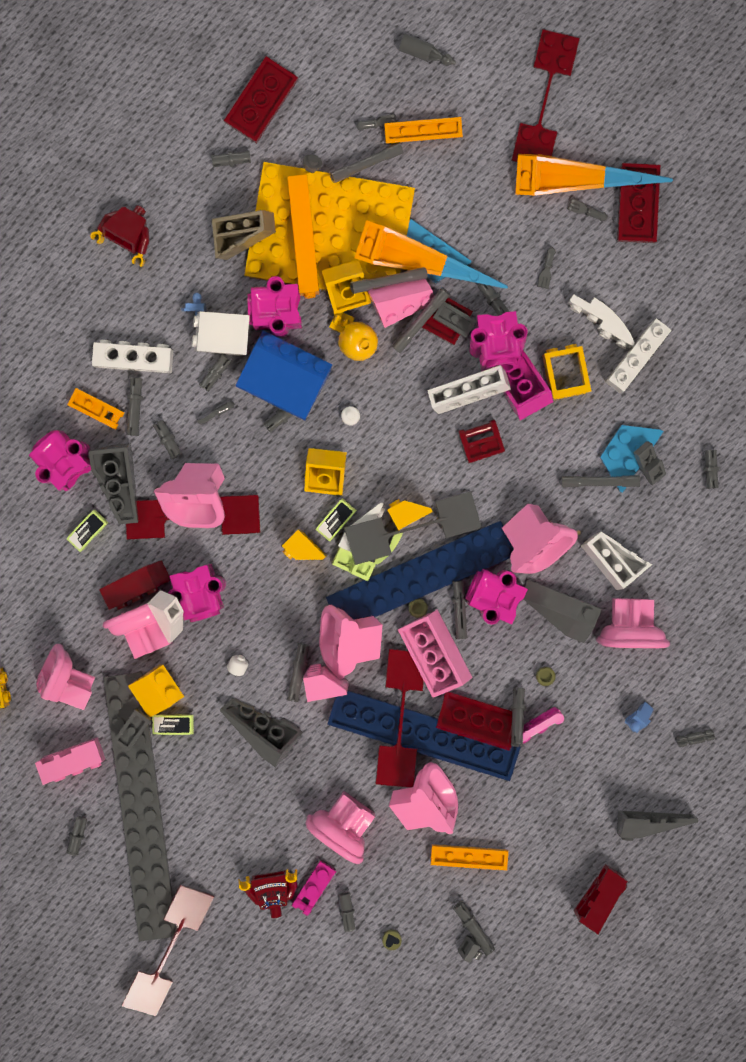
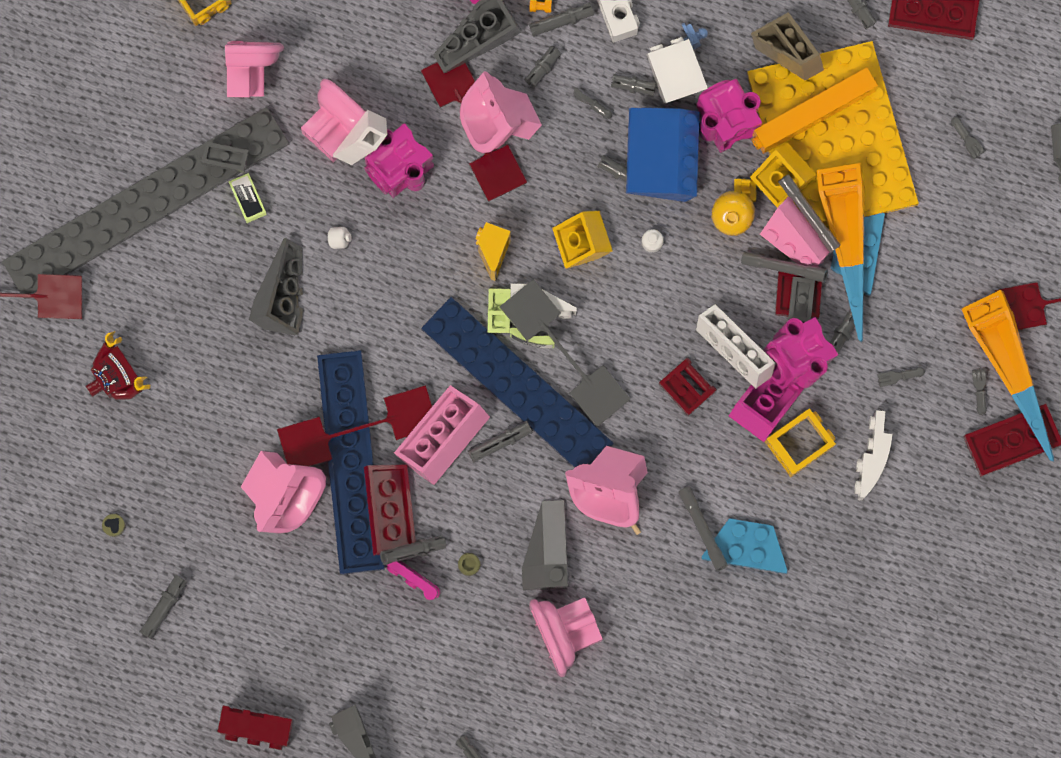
camera: 60 degrees right, 10 degrees down
(70, 761) = (164, 110): bright pink wedge -> none
(76, 836) = (87, 150): dark grey axle -> none
(87, 530) = (413, 26): slope -> none
(134, 585) = (377, 96): dark red wedge -> none
(156, 691) = (276, 164): yellow slope -> none
(298, 672) = (359, 302): dark grey pin -> none
(312, 163) = (894, 89): dark grey plate -> none
(314, 887) = (136, 418): dark pink plate -> none
(323, 684) = (361, 323): bright pink slope -> none
(336, 519) = (542, 272): slope -> none
(342, 827) = (215, 419): bright pink piece -> none
(346, 171) = (938, 159): dark grey piece -> none
(347, 640) = (417, 336): bright pink piece -> none
(347, 911) = (123, 464): dark grey axle -> none
(406, 512) = (576, 338): yellow slope -> none
(418, 608) = (483, 397): olive tile -> none
(423, 130) = (981, 186): light orange plate -> none
(469, 857) = (238, 567): light orange plate -> none
(469, 949) = (139, 612): dark grey tile -> none
(489, 593) = (532, 460): dark pink piece -> none
(614, 560) = (625, 579): white wedge -> none
(638, 356) = (853, 509): white brick -> none
(640, 718) = (468, 683): medium blue piece -> none
(649, 463) = (745, 572): dark grey slope -> none
(711, 469) = (770, 642): dark grey pin -> none

